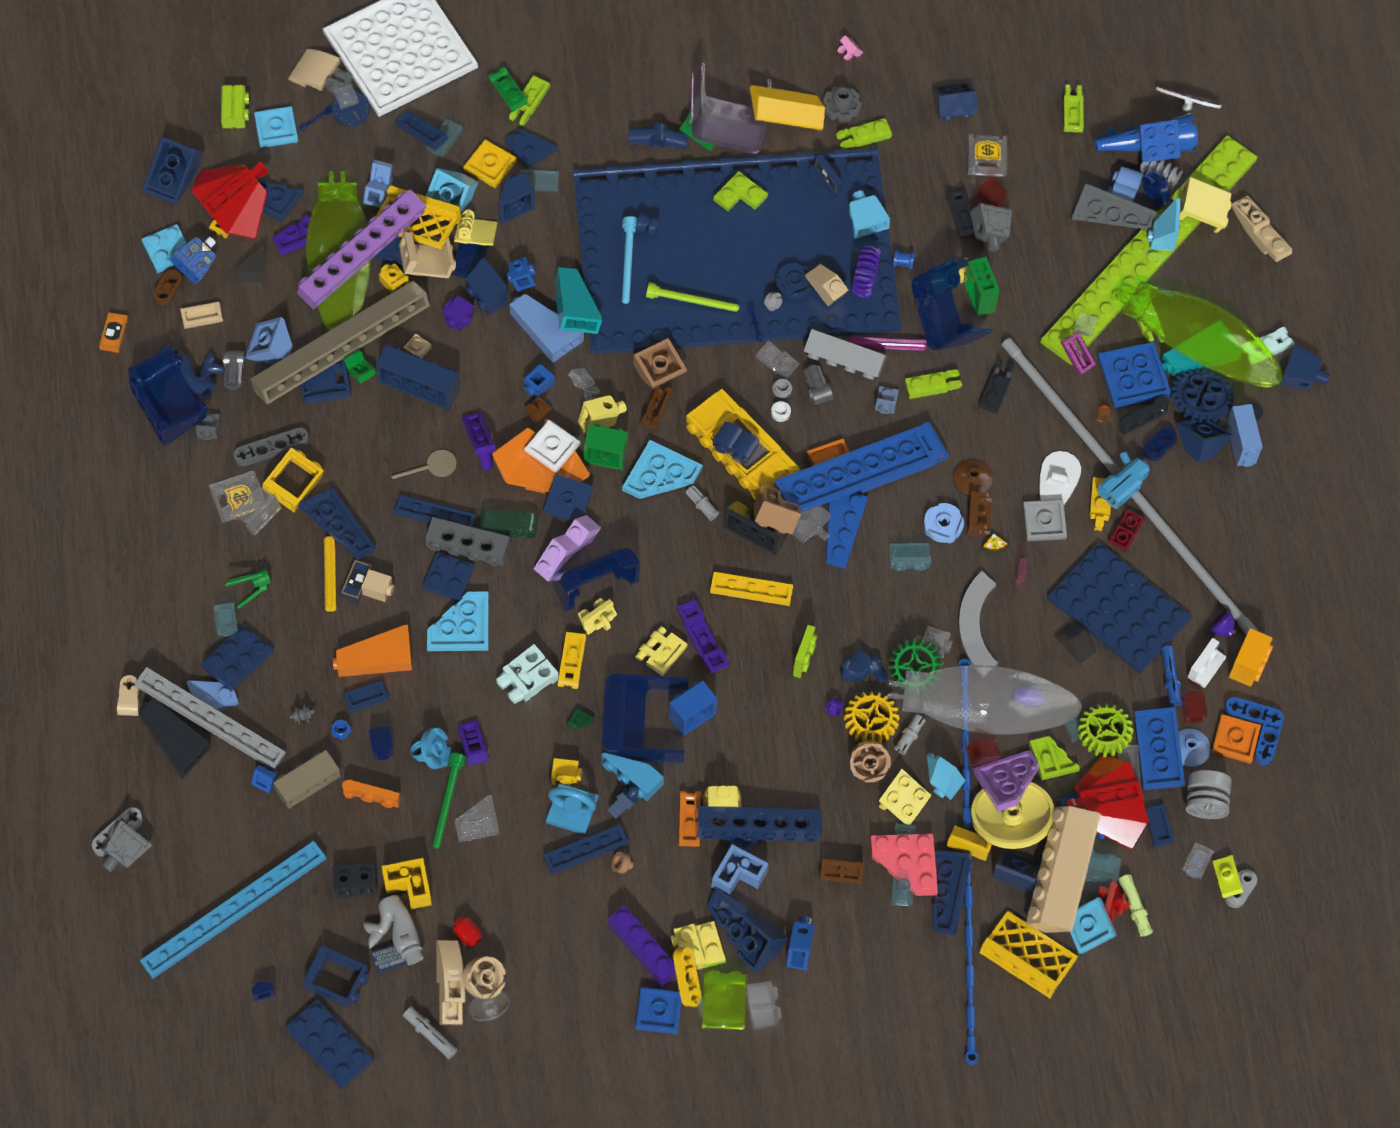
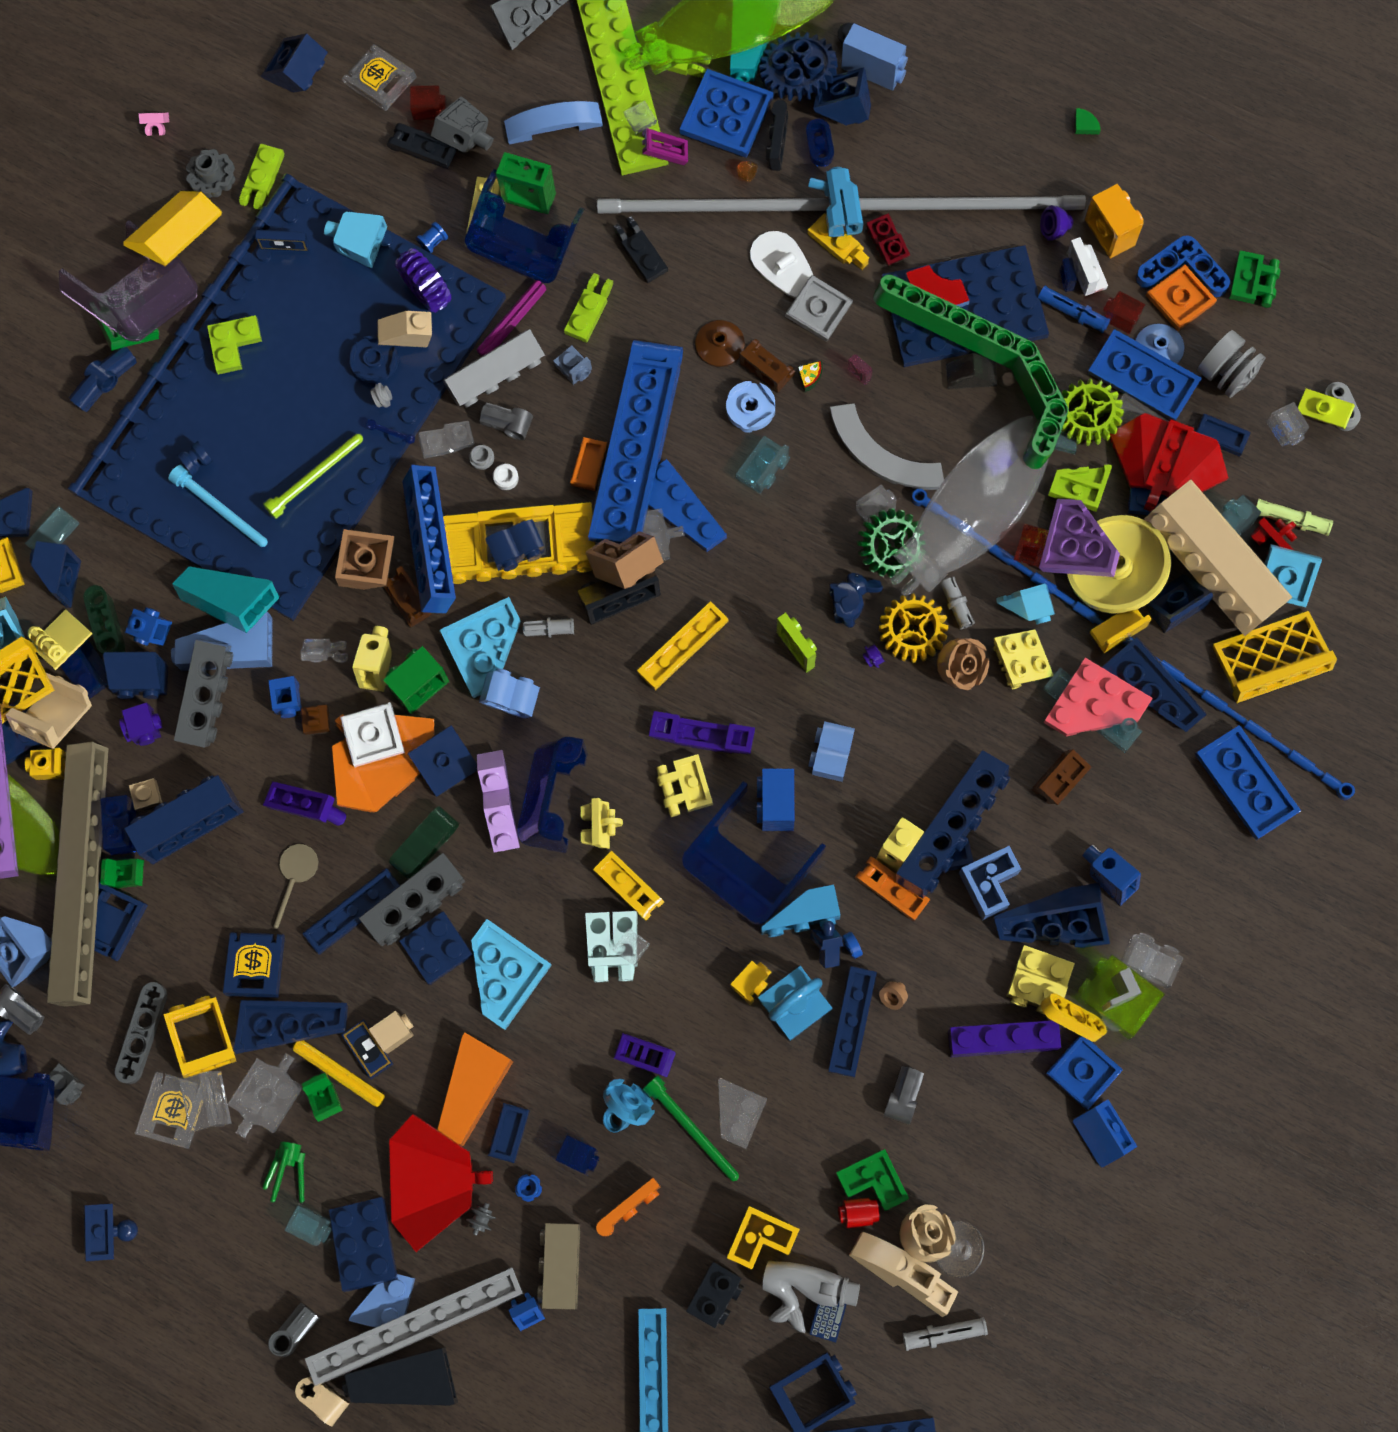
camera: 45 degrees left, 10 degrees up
(137, 507) = (100, 1232): none -> dark blue plate
(159, 654) = (294, 1328): none -> dark grey piece
(285, 541) = (265, 1095): none -> clear plate
(303, 668) = (429, 1181): none -> red panel
(309, 573) = (322, 1096): none -> green bracket
(364, 478) = (254, 959): none -> dark blue container
(391, 336) = (116, 815): none -> clear blue brick
(475, 340) = (187, 729): none -> dark grey brick
(500, 927) = (874, 1172): none -> green plate
(506, 240) = (107, 609): none -> clear green beam
(532, 684) = (631, 947): none -> clear tile
(557, 912) = (902, 1101): none -> flat silver piece
(580, 720) = (700, 924): dark green tile -> none
(629, 1048) = (1104, 1133): none -> blue panel
(634, 817) = (852, 945): none -> blue tile
(639, 507) = (509, 693): none -> medium blue brick
(701, 391) = (428, 539): none -> blue brick
(722, 992) = (1126, 988): none -> light grey panel
(751, 723) = (832, 751): none -> medium blue brick
(928, 990) = (1247, 782): none -> blue plate
(1045, 275) = (552, 118): none -> medium blue slope
(1082, 552) = (991, 342): none -> green beam
(1109, 581) = (949, 290): none -> red tile
(1192, 656) = (1068, 274): none -> clear blue tile
(1284, 769) = (1247, 276): none -> green plate
(1312, 599) = (1086, 122): none -> green tile

